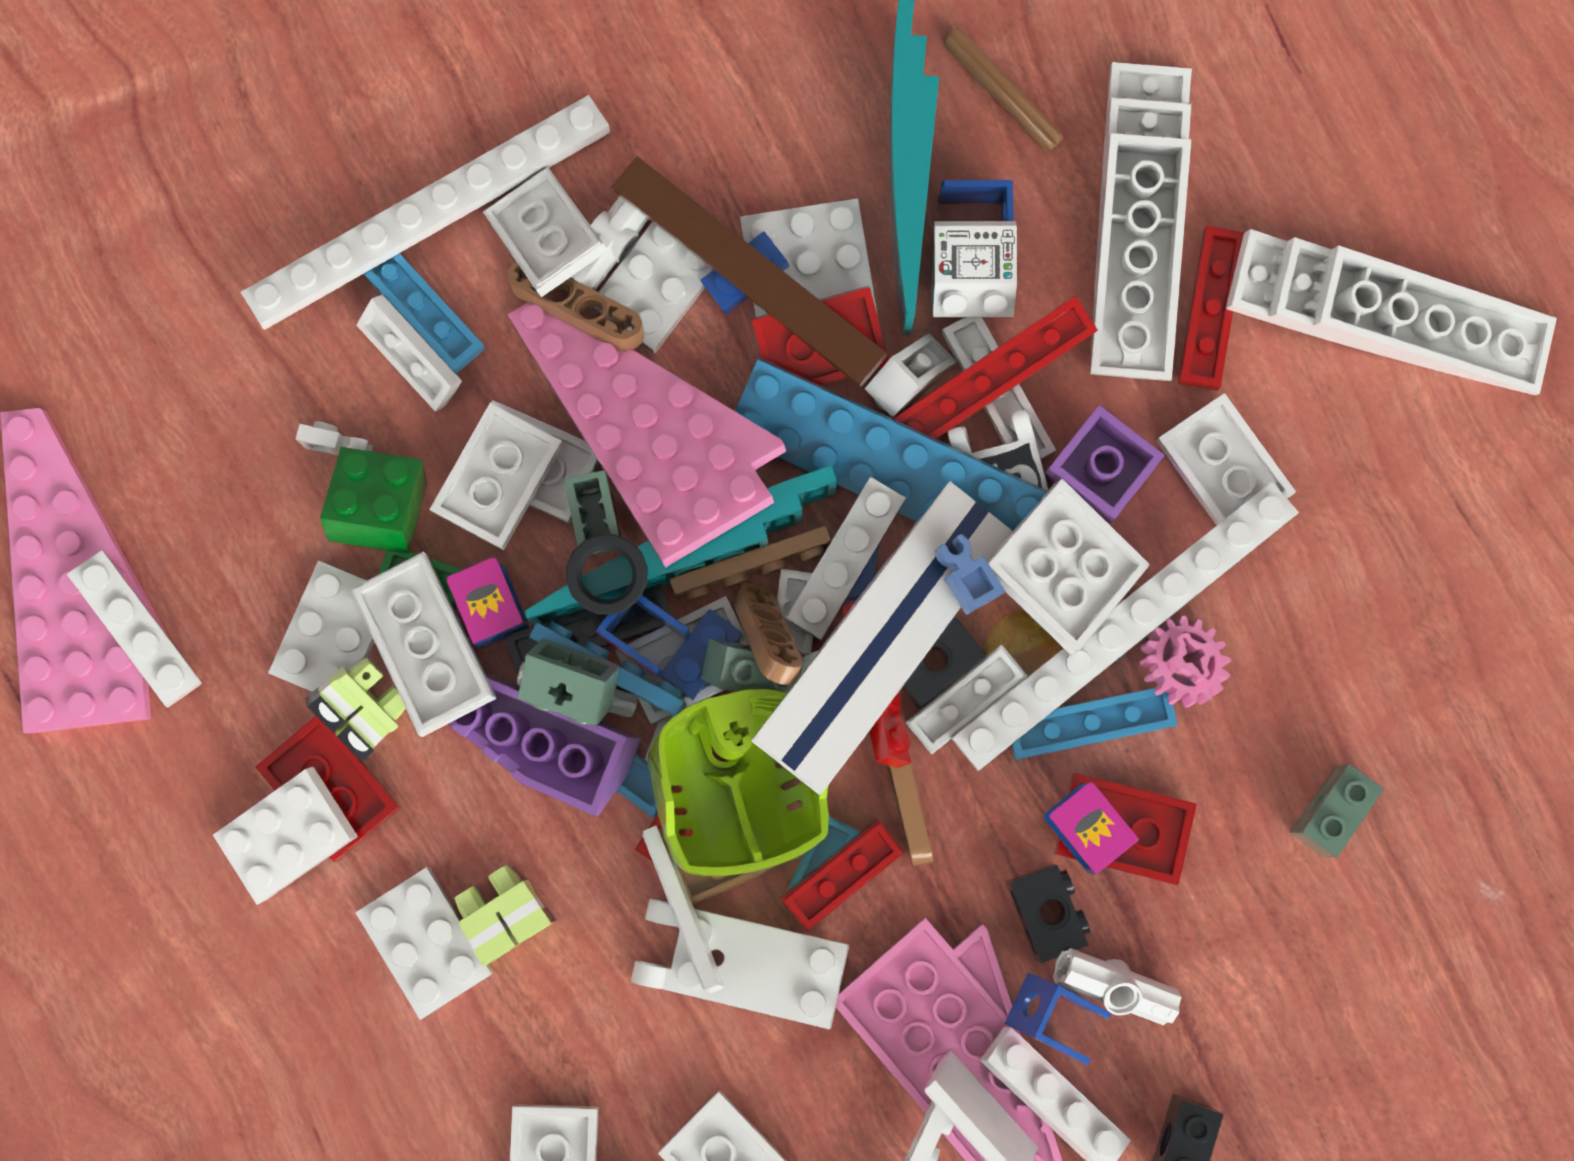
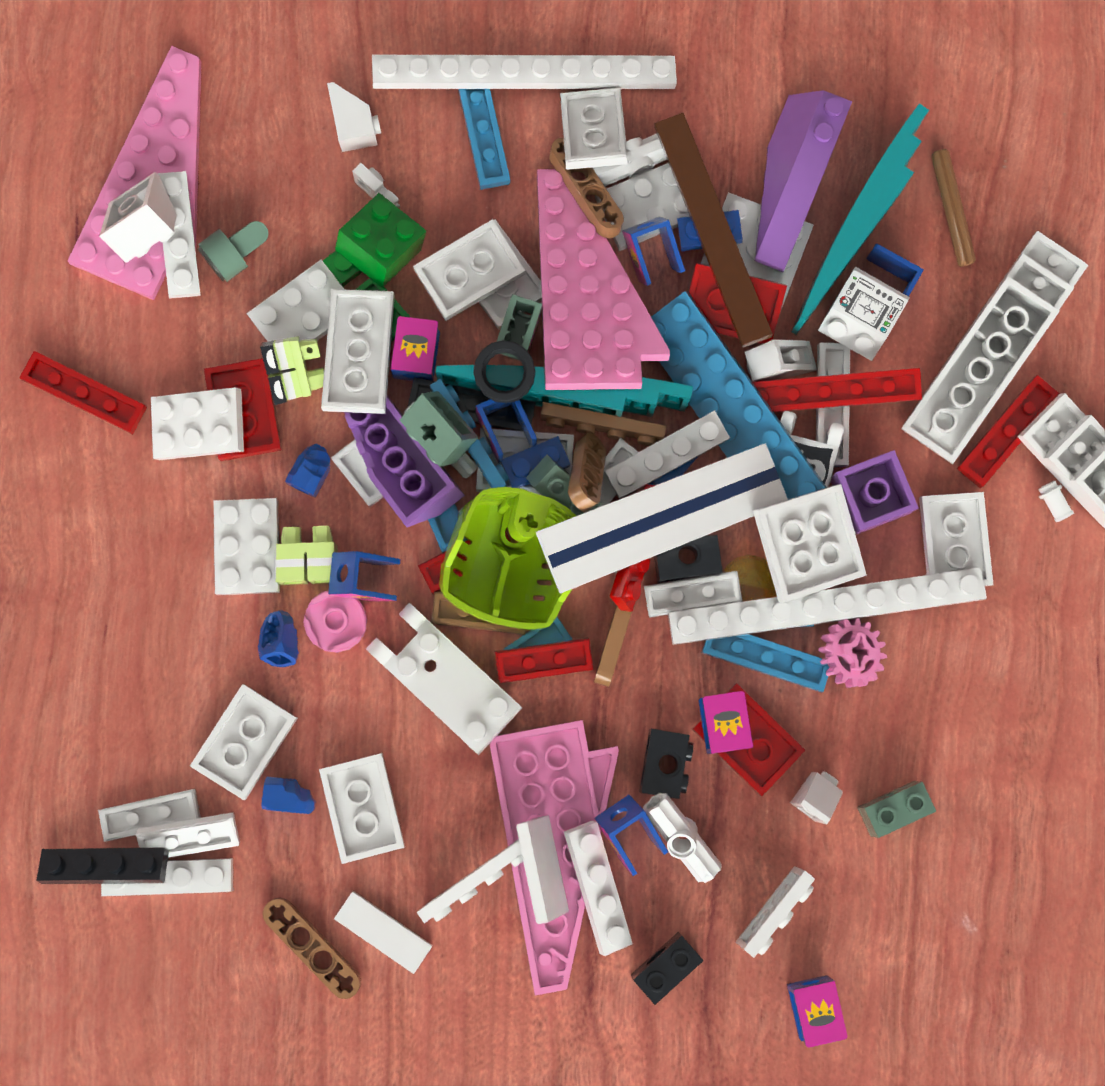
camera: 20 degrees right, 0 degrees up
(78, 638) = (139, 219): none -> white slope
(130, 875) = (83, 392): none -> red plate
(206, 619) = (227, 254): none -> sand green piece
(261, 378) = (353, 120): none -> white slope
(347, 557) = (341, 268): none -> green plate
(408, 353) = (458, 157): white plate -> none
(446, 811) = (309, 470): none -> blue rock
(497, 781) = (354, 469): none -> white tile
(524, 1030) = (278, 640): none -> blue rock
(557, 893) = (349, 586): none -> blue piece
(576, 968) = (335, 622): none -> bright pink tile
(681, 299) = (669, 242): none -> blue piece
(683, 911) = (426, 621): white tile -> none
(801, 148) = (795, 169): none -> medium lavender wedge
(971, 581) = (740, 514): medium blue plate -> none
(1242, 848) = (818, 797): none -> white slope
(1271, 1010) = (776, 912): none -> white plate
(1309, 356) = (1055, 501): none -> white pin
(1382, 1094) = (817, 1011): none -> dark pink piece

